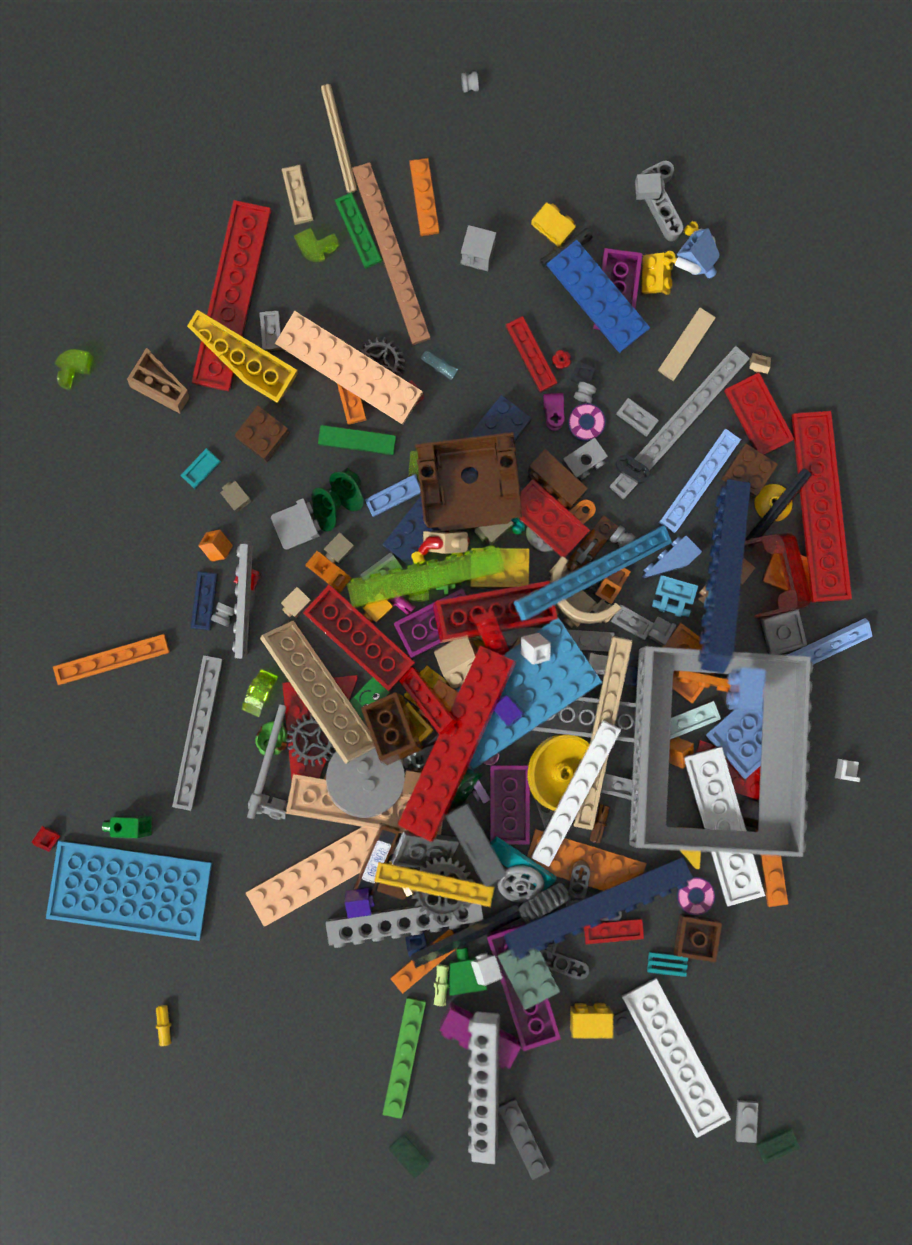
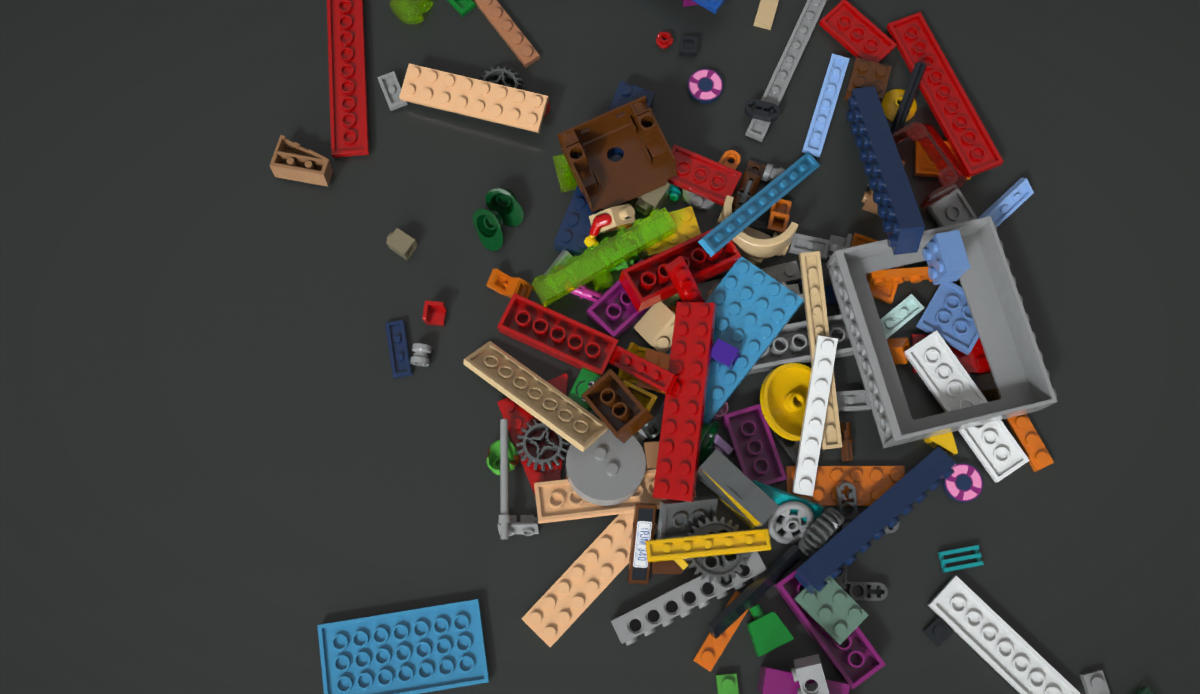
camera: 15 degrees left, 10 degrees down
(45, 838) = (304, 626): red plate -> none
(71, 362) = (216, 169): clear neon green brick -> none
(111, 659) = (323, 430): orange plate -> none
(128, 826) = (384, 587): green torso -> none
(197, 733) = (428, 476): light grey plate -> none
(200, 468) = (361, 230): teal tile -> none
(215, 545) = (395, 293): orange panel -> none
(242, 607) = (434, 325): light grey plate -> none
(245, 359) = (375, 116): yellow wedge -> none
(258, 693) = (476, 418): clear neon green brick -> none
(262, 433) = (410, 180): reddish brown brick -> none
(295, 603) = (487, 323): tan brick -> none
(296, 525) = (466, 252): light grey bracket -> none
(338, 549) = (513, 261): dark tan brick -> none
(352, 406) = (486, 132): orange plate -> none
(357, 440) = (500, 162): green tile -> none
(358, 903) = (638, 591): dark purple brick -> none
(377, 610) = (567, 304): light orange brick -> none
(394, 495) = (550, 199): medium blue tile -> none
(415, 943) = (706, 615): dark blue plate -> none
(439, 365) = (555, 75): clear light blue axle -> none
(441, 985) = (746, 650): yellowish green pin -> none
(486, 969) = (787, 616): white brick -> none
(531, 354) = (636, 43): red plate -> none
(535, 648) = (730, 288): white panel -> none
(554, 408) = (672, 83): magenta piece -> none
(556, 479) = (696, 137): reddish brown brick -> none
(585, 392) = (695, 60): light grey wheel -> none
(591, 450) = (717, 107): light grey brick -> none
(591, 1021) = (908, 638): yellow brick -> none
(614, 931) = (897, 542): red plate -> none
(637, 417) = (749, 67): light grey plate -> none
(674, 590) = (839, 206): medium azure plate -> none
(679, 556) = (830, 177): medium blue slope -> none
(697, 938) = (981, 521): reddish brown brick -> none
(847, 770) = (1059, 320): white panel -> none

